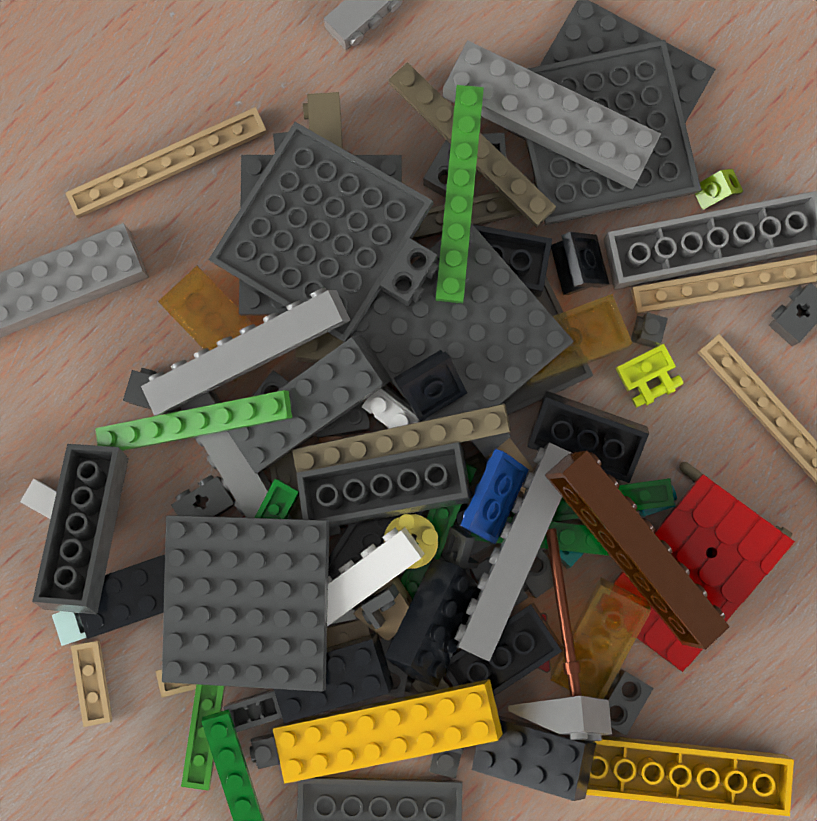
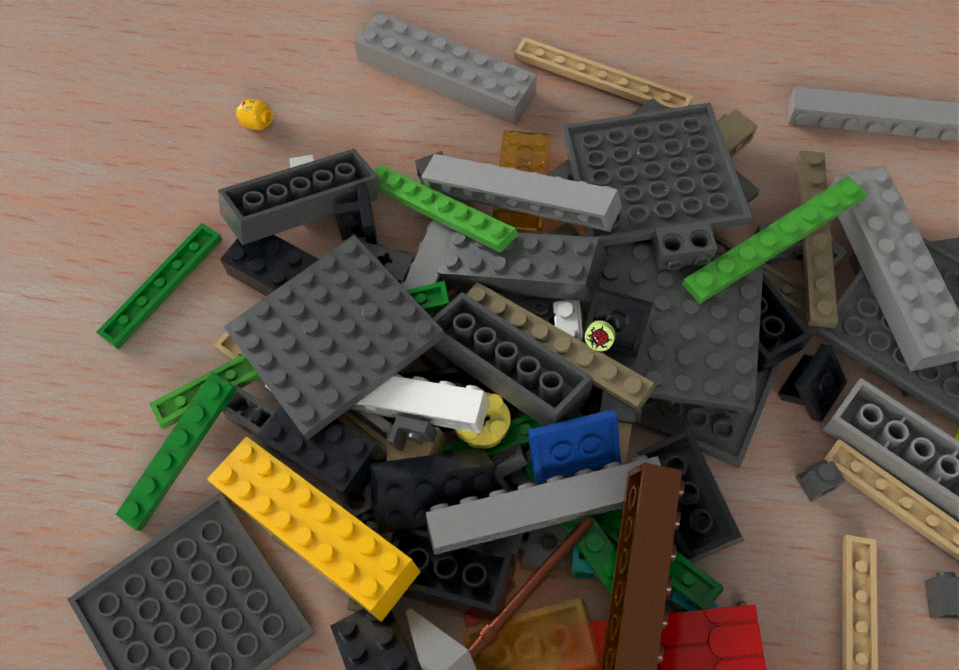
camera: 50 degrees right, 20 degrees down
(62, 703) = (159, 286): none -> green plate
(68, 627) = (218, 246): light aqua brick -> none
(91, 683) = (189, 293): tan plate -> none
(141, 498) = (356, 217): none -> black bracket
(264, 751) = (221, 446): dark grey brick -> none
(432, 408) = (600, 335): none -> tile
(446, 762) = (325, 603): dark grey bracket -> none
(596, 333) = (773, 431): clear yellow brick -> none
(645, 368) = (789, 504): neon yellow plate -> none

